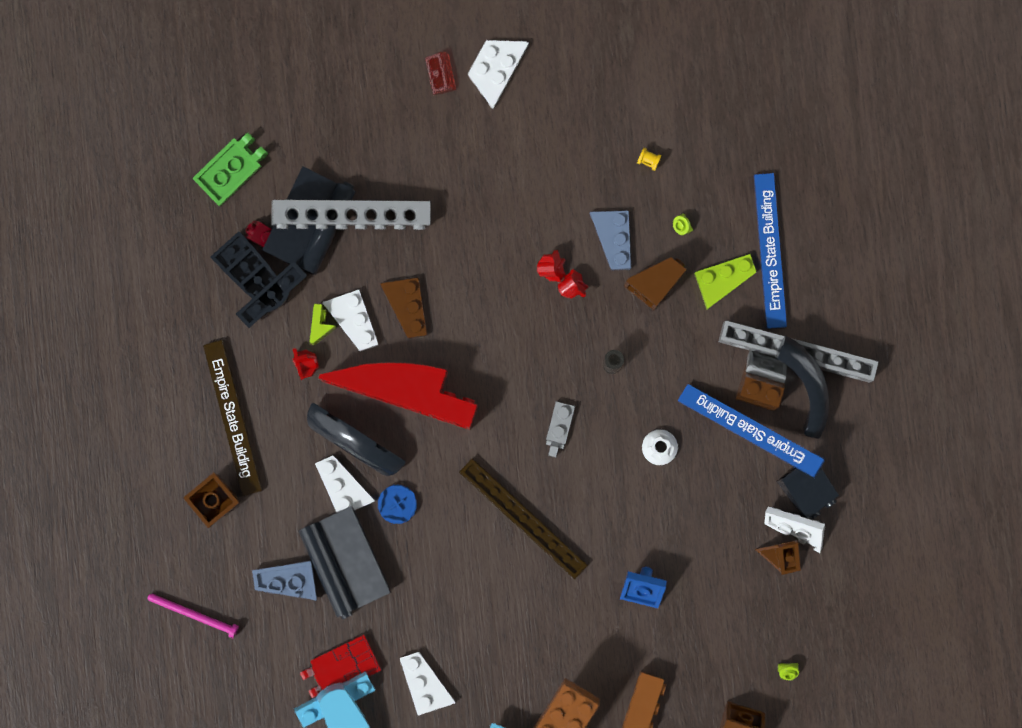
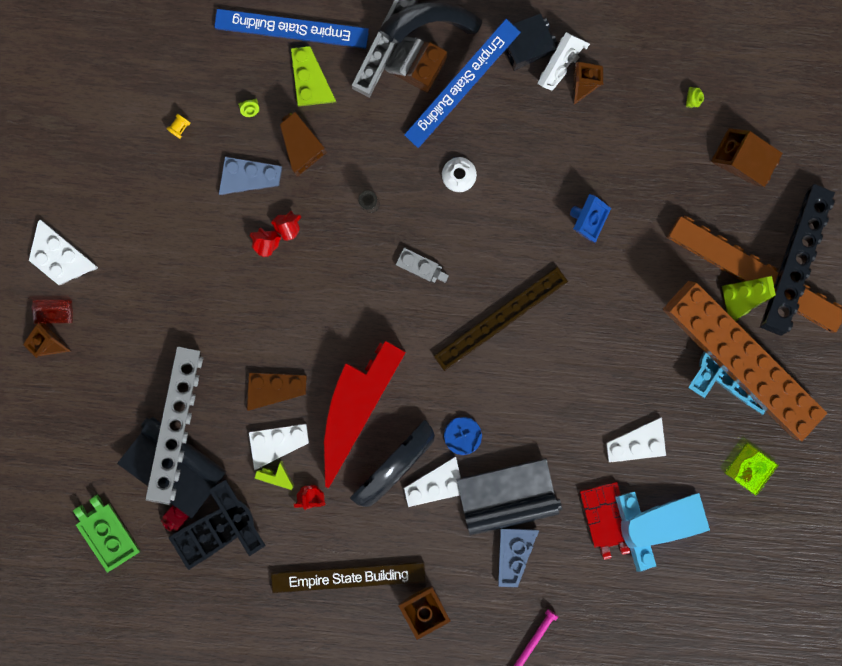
camera: 80 degrees left, 5 degrees up
(408, 71) = (44, 342): none -> reddish brown slope

